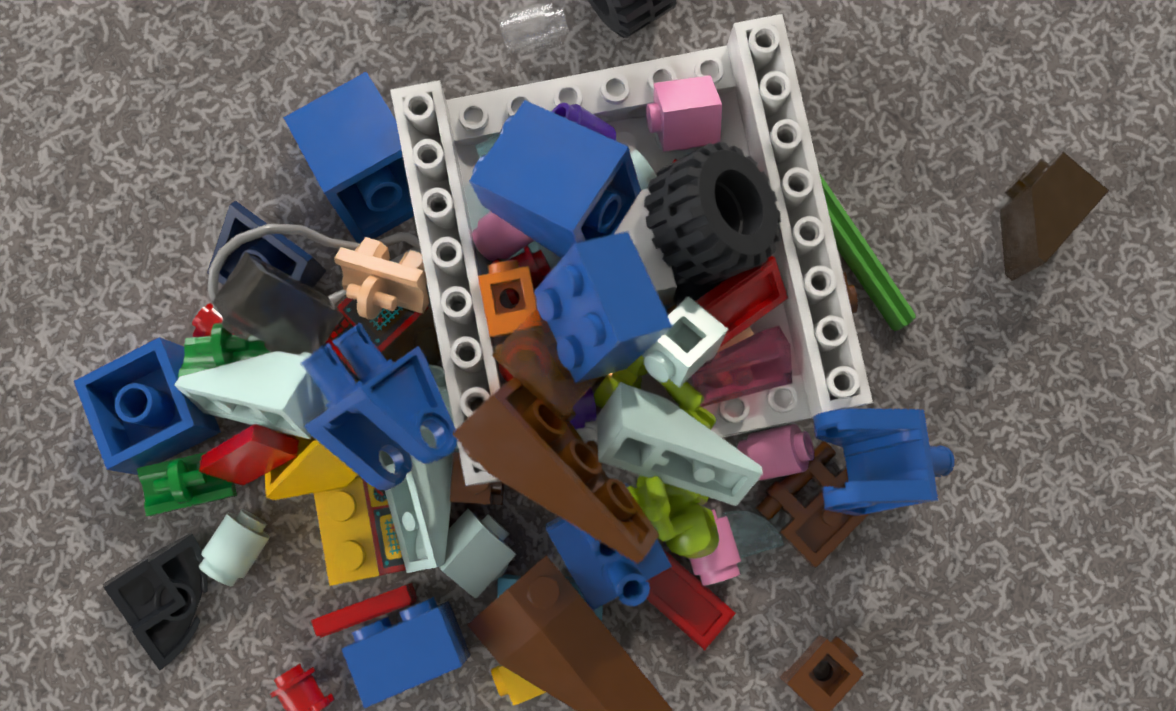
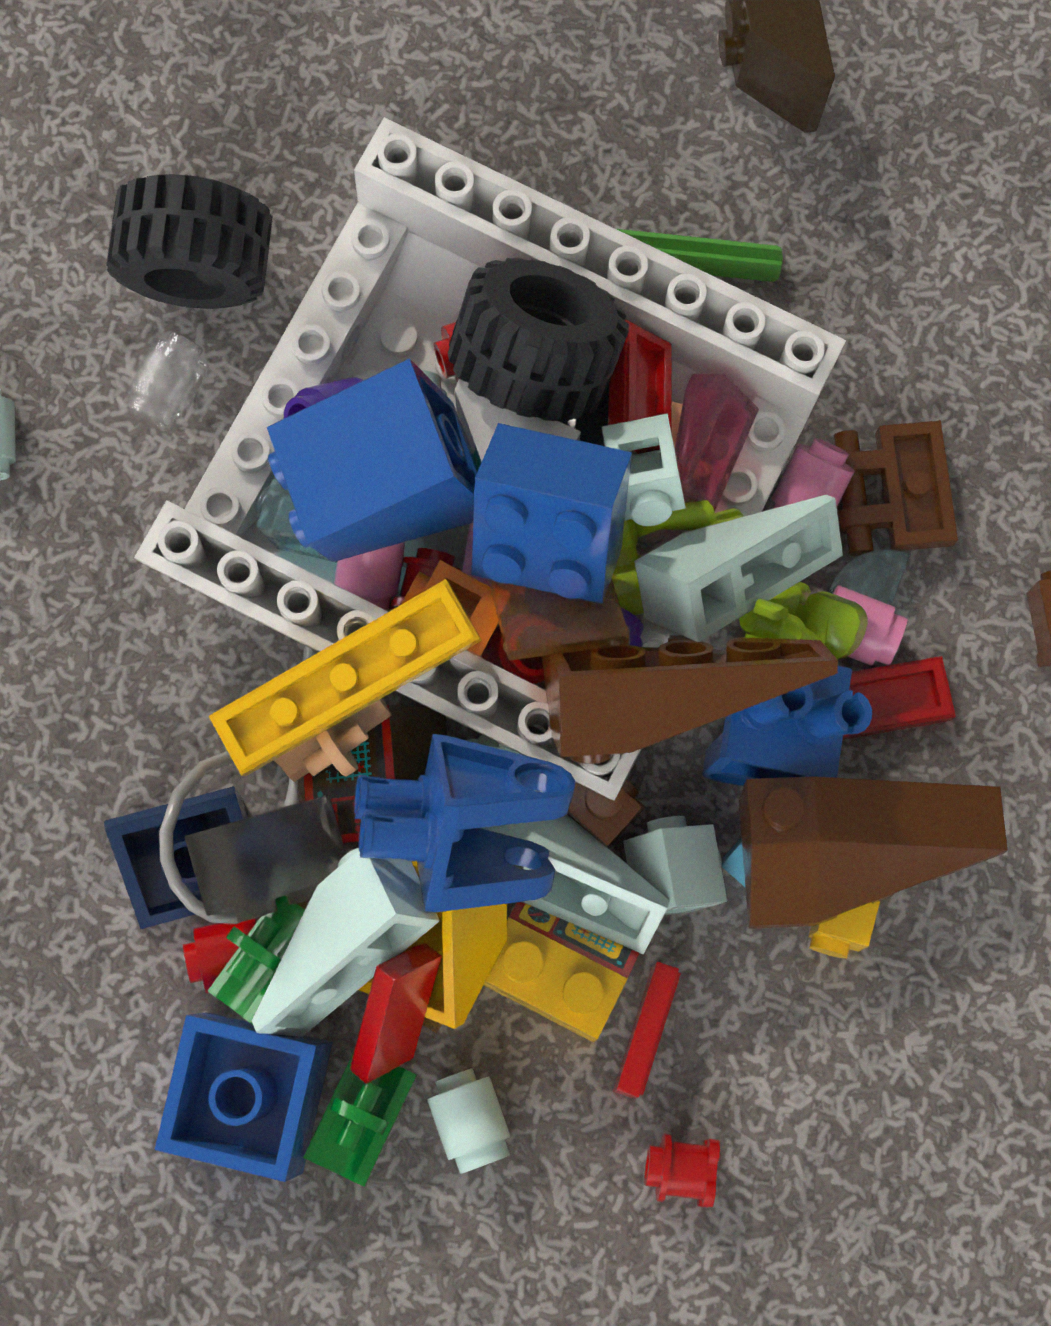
camera: 55 degrees left, 5 degrees down
(162, 598) = (457, 1245): black brick -> none
(356, 156) = (153, 658): blue slope -> none
(405, 654) = (728, 1009): blue brick -> none
(411, 268) = (344, 678): none -> yellow tile
(685, 113) = (398, 294): bright pink brick -> none
(884, 457) = (904, 382): blue piece -> none

